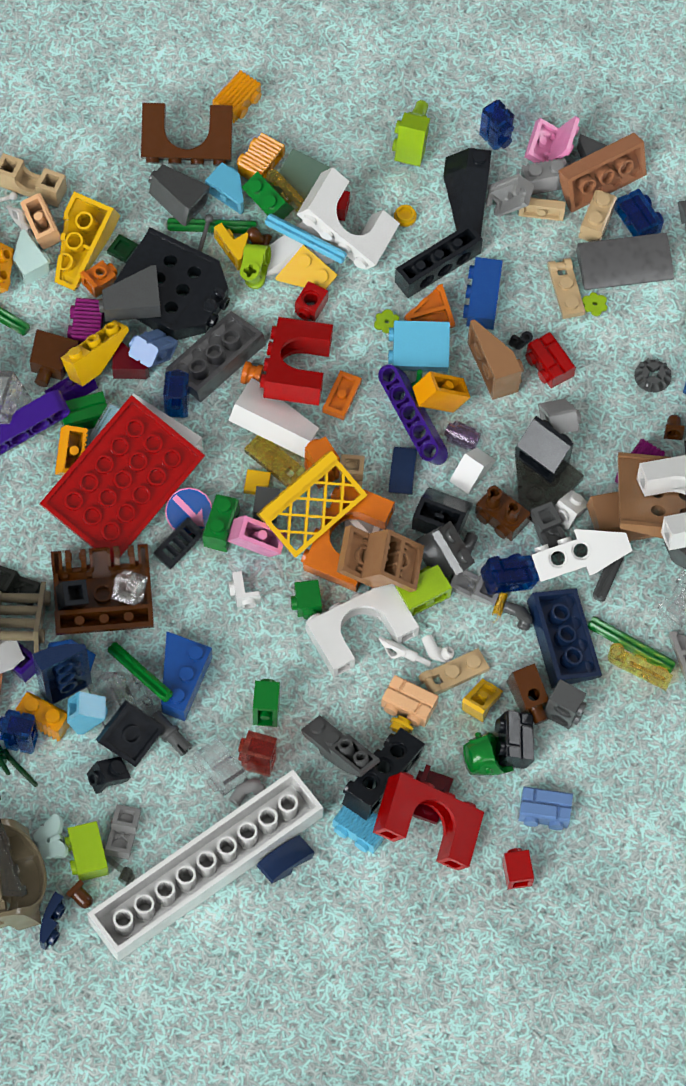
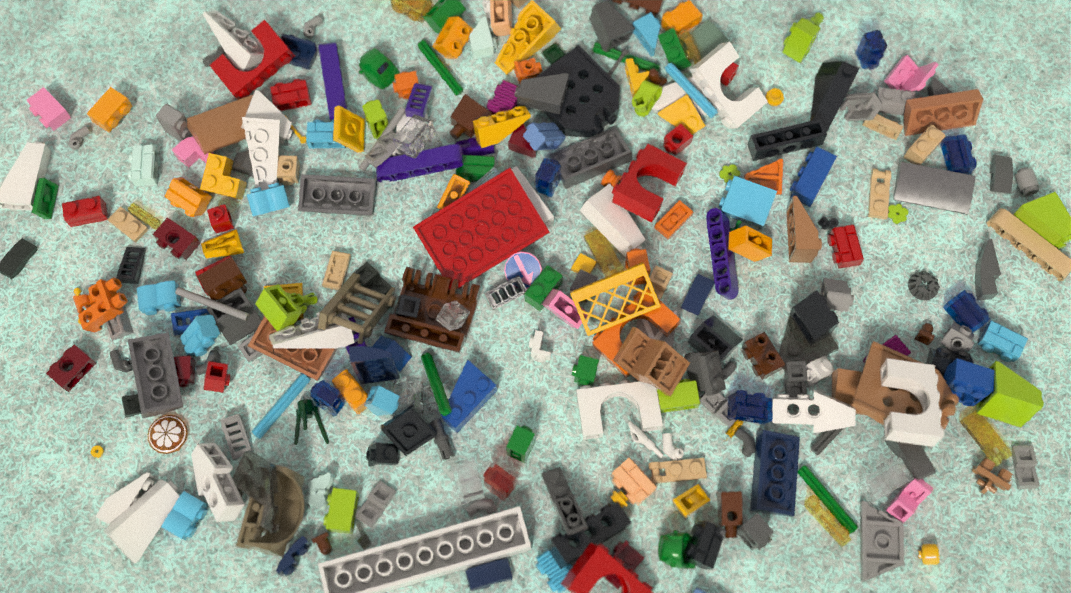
camera: 25 degrees right, 5 degrees up
(462, 435) = (754, 282): clear purple brick -> none
(471, 469) = (752, 312): white slope -> none

